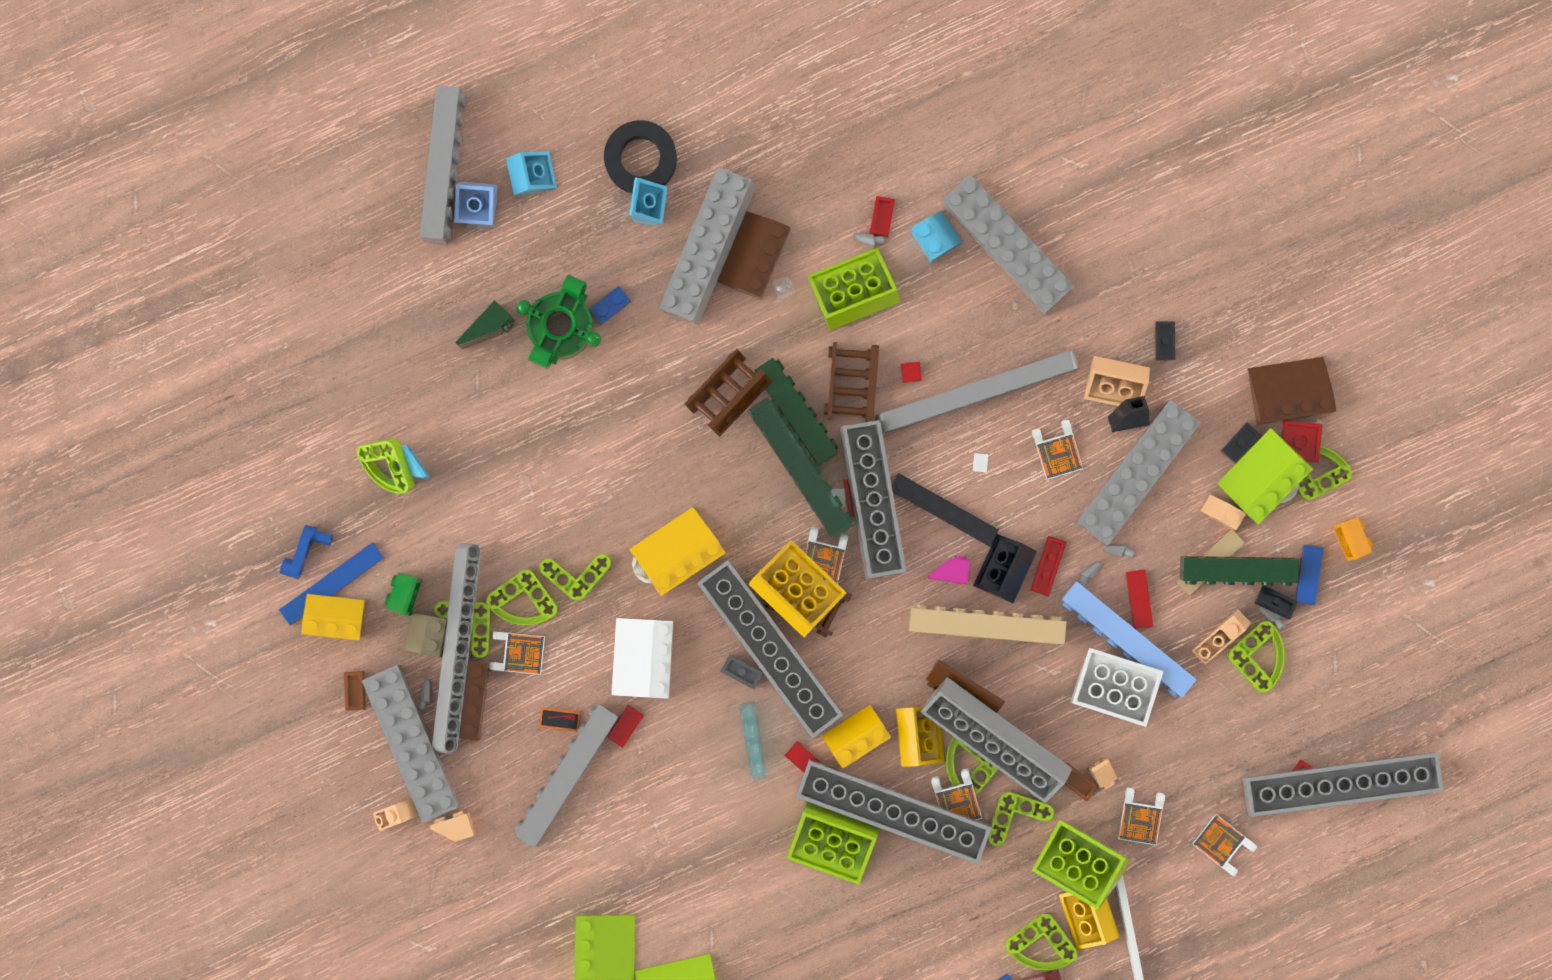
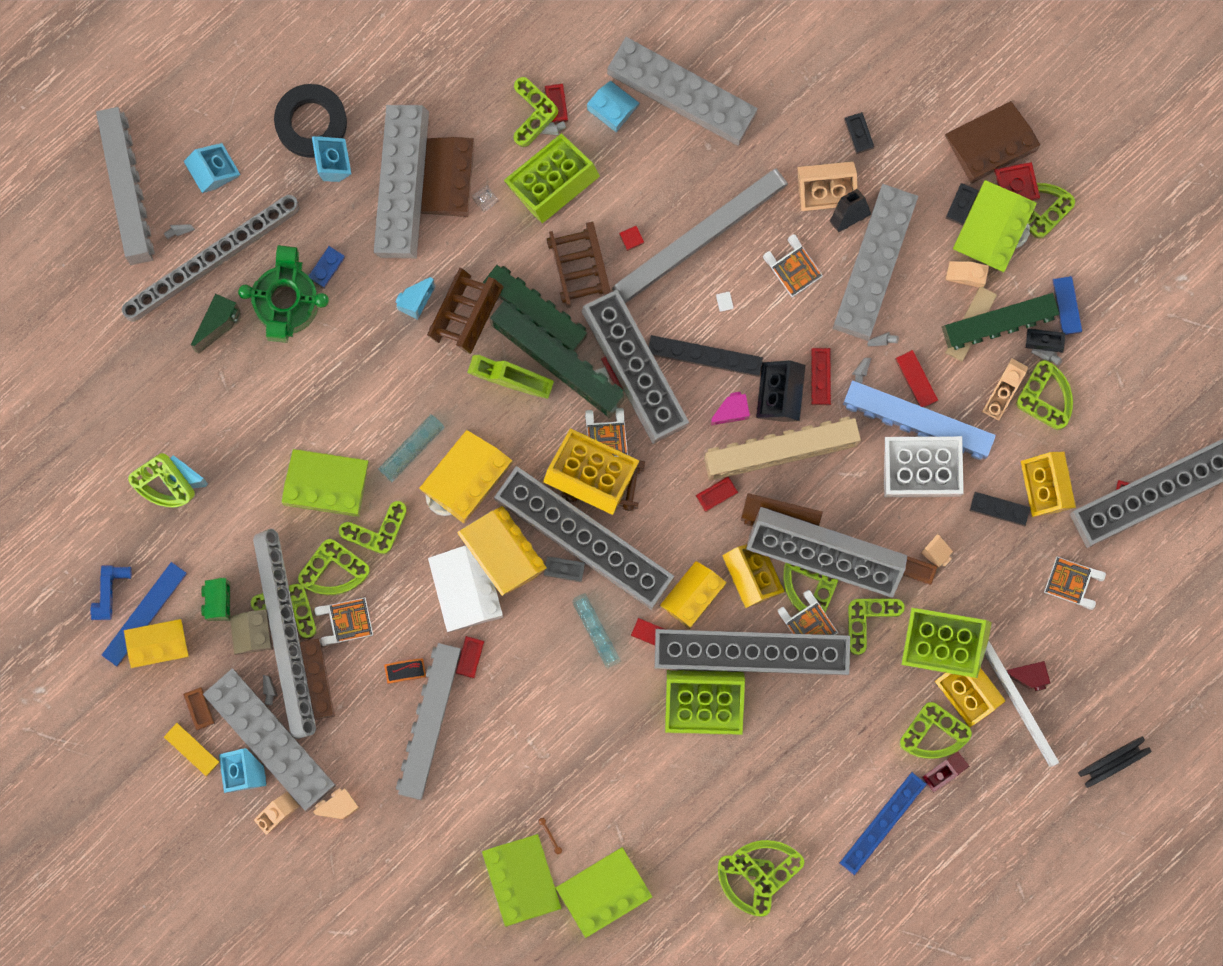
camera: 25 degrees left, 5 degrees down
(335, 727) = (191, 749): none -> yellow tile
(375, 764) = (241, 771): none -> medium azure slope
(475, 203) = (168, 211): light blue slope -> none
(492, 260) = (206, 267): none -> light grey beam
(542, 514) = (325, 483): none -> lime slope
(634, 507) = (411, 448): none -> clear light blue brick
(642, 904) = (557, 850): none -> dark orange hinge
(684, 364) = (415, 298): none -> medium azure slope
(687, 637) = (502, 550): none -> yellow slope
(751, 470) = (510, 376): none -> lime slope
(863, 222) = (539, 114): none -> lime beam
(910, 647) = (716, 494): none -> red tile
(1140, 821) = (988, 586): flag -> none
(1152, 920) = (1031, 676): none -> dark red slope
(1176, 750) = (999, 509): none -> black plate
(1231, 742) = (1048, 484): none -> yellow slope
(1353, 539) = (1096, 258): light orange slope -> none

